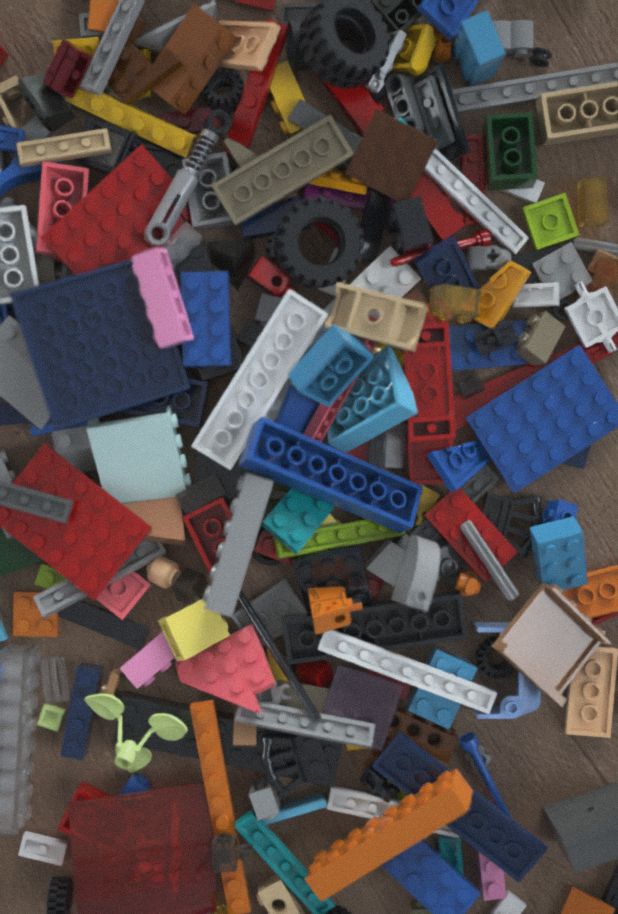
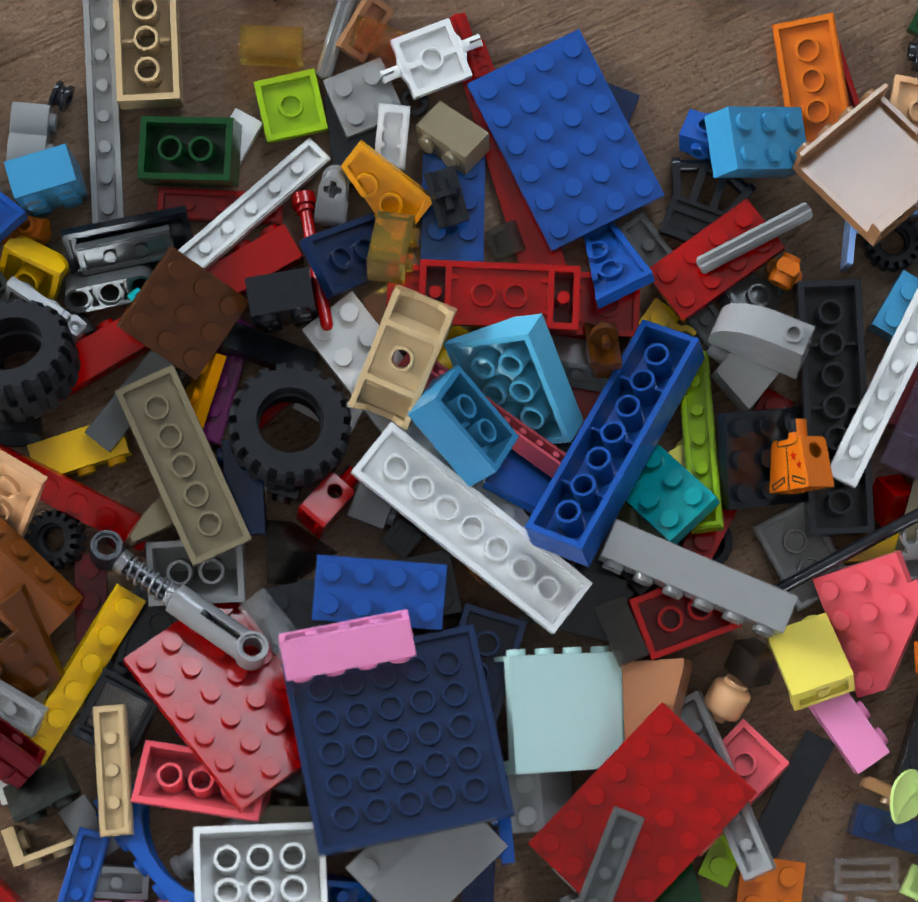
camera: 80 degrees left, 5 degrees down
(398, 460) = (602, 348): none -> reddish brown hips

